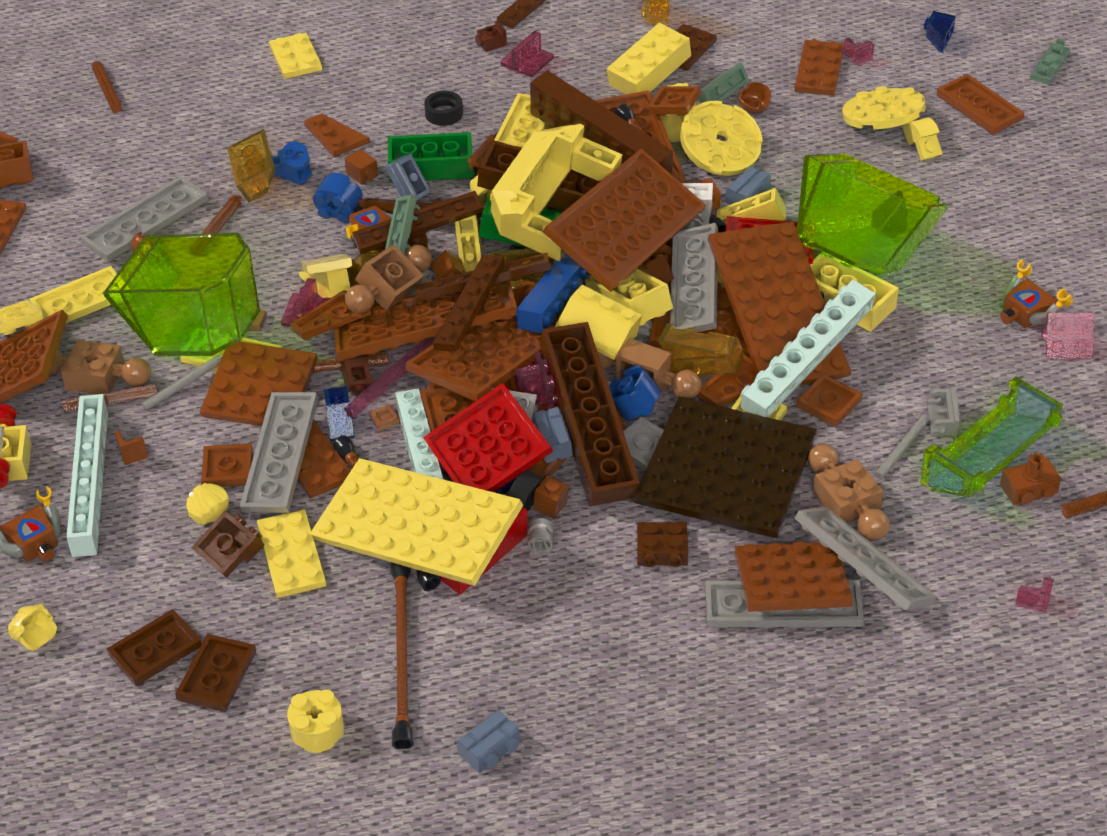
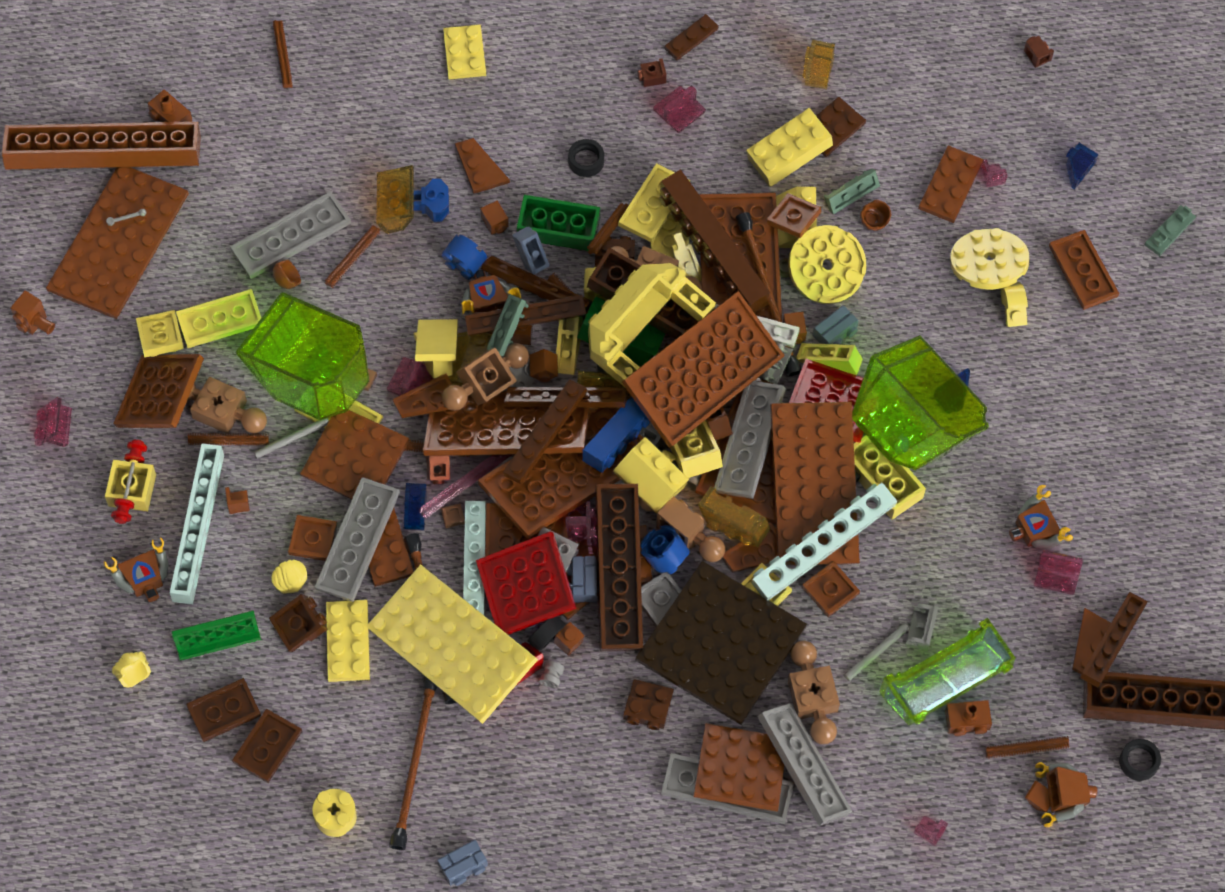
camera: 10 degrees right, 20 degrees up
(134, 578) = (216, 635): none -> green fence

